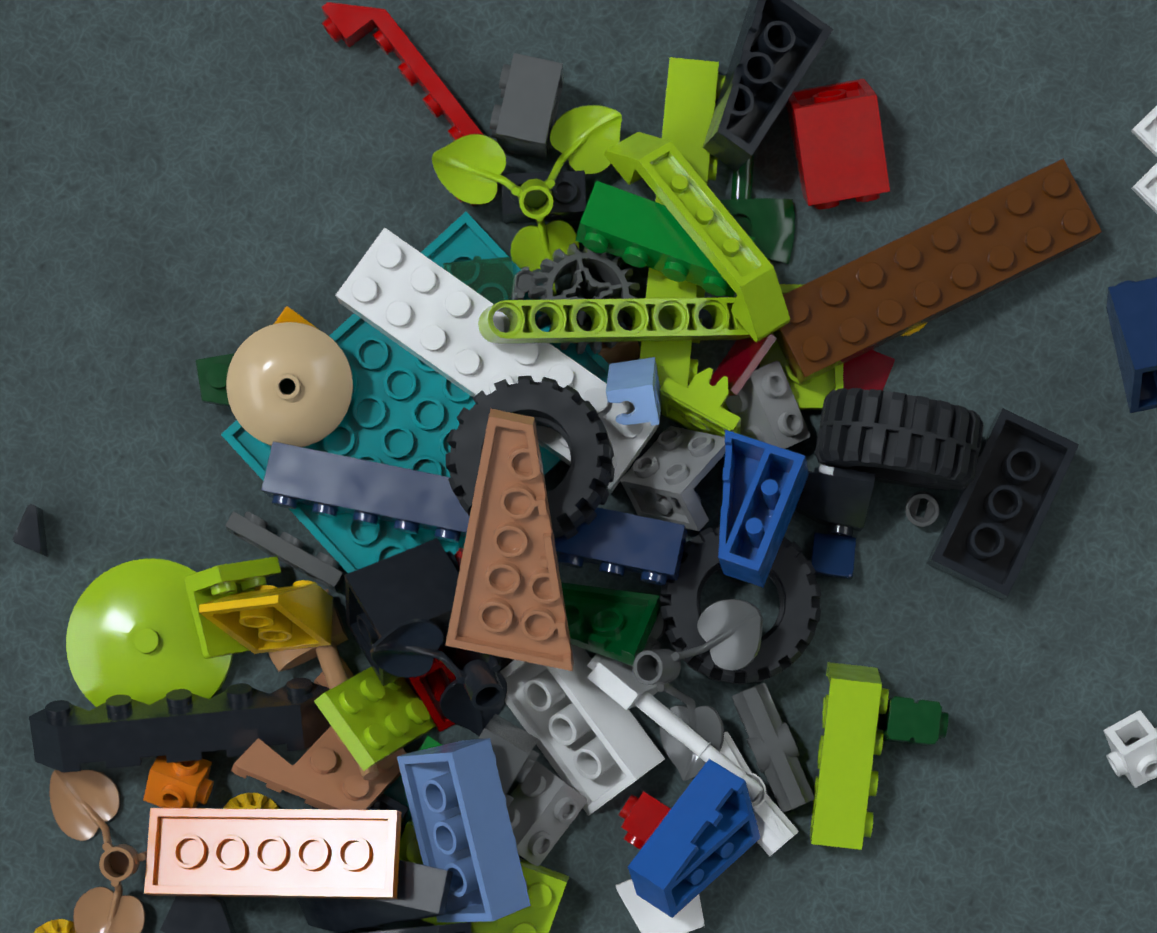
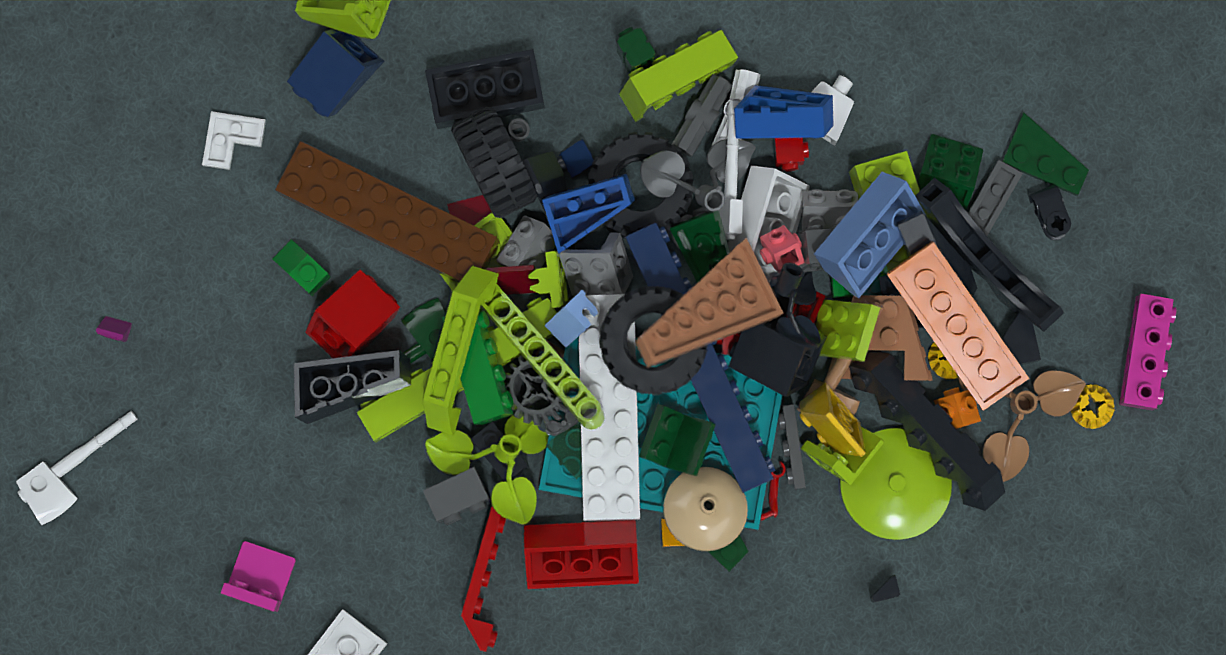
camera: 130 degrees left, 0 degrees up
(249, 486) = (773, 493): none -> red piece
(352, 203) = (581, 554): none -> red slope
(395, 411) = (677, 440): none -> dark green bracket
(538, 711) = (781, 248): none -> coral brick
(944, 126) = (301, 267): none -> green slope

